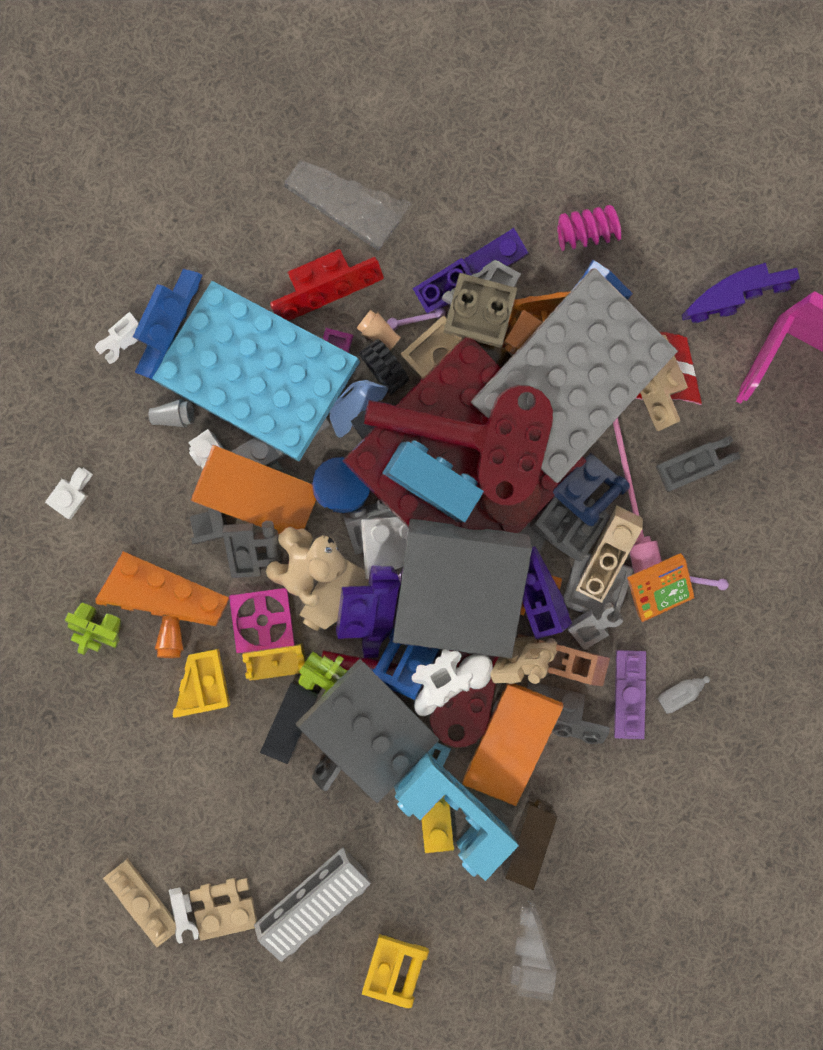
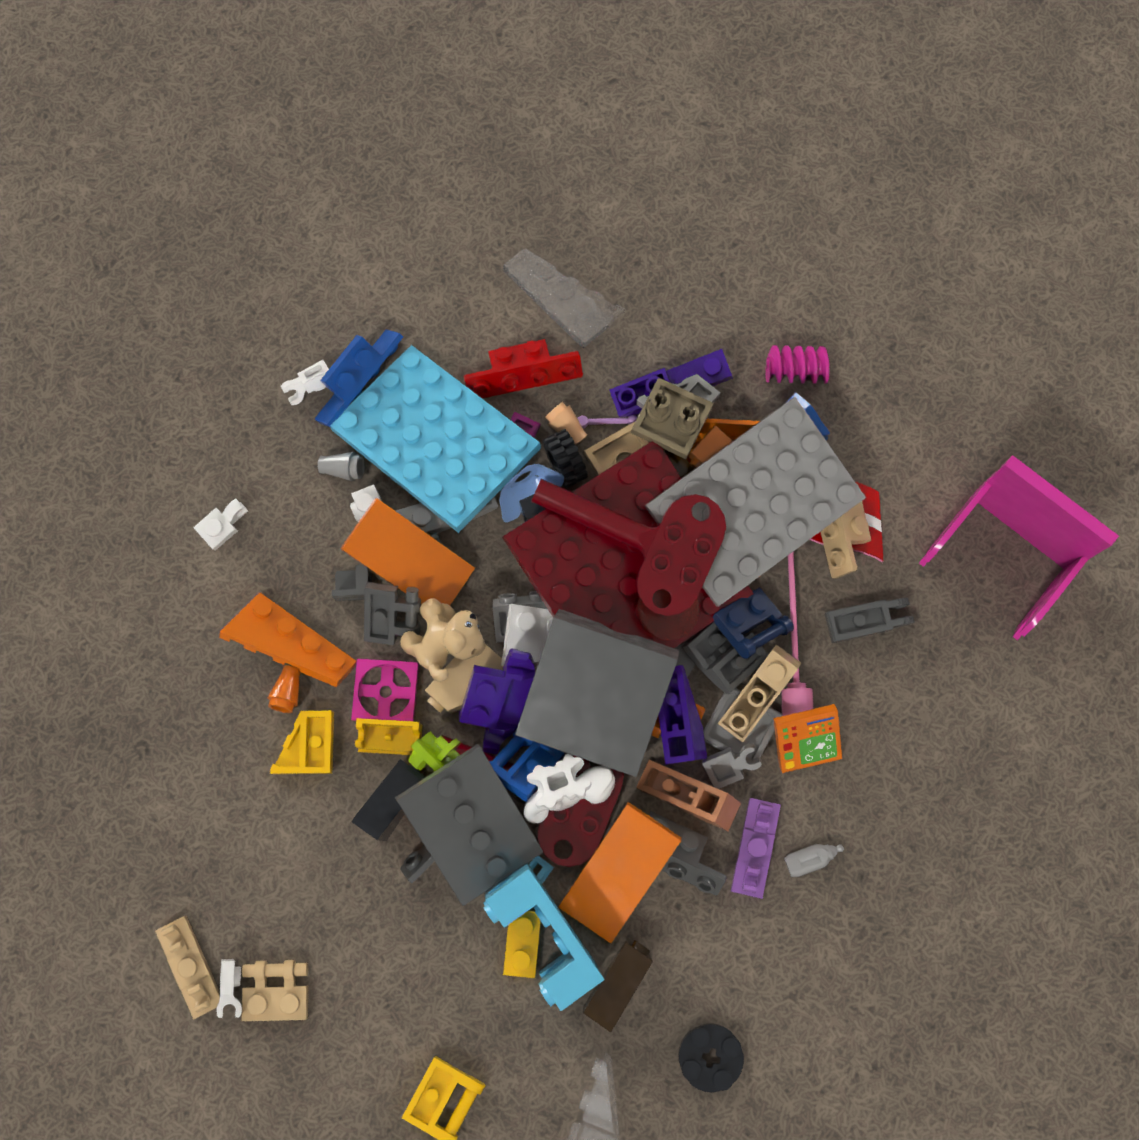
camera: 10 degrees right, 10 degrees down
(82, 623) = (205, 668): lime hips -> none
(312, 905) = (369, 1005): light grey brick -> none
(338, 487) = (495, 569): blue tile -> none
(433, 480) = (590, 574): dark azure brick -> none
(522, 662) = (651, 781): tan plate -> none
(635, 898) = (694, 1067): none -> black plate
(722, 584) = (873, 750): lavender hinge -> none
(729, 293) = (928, 455): dark purple slope -> none

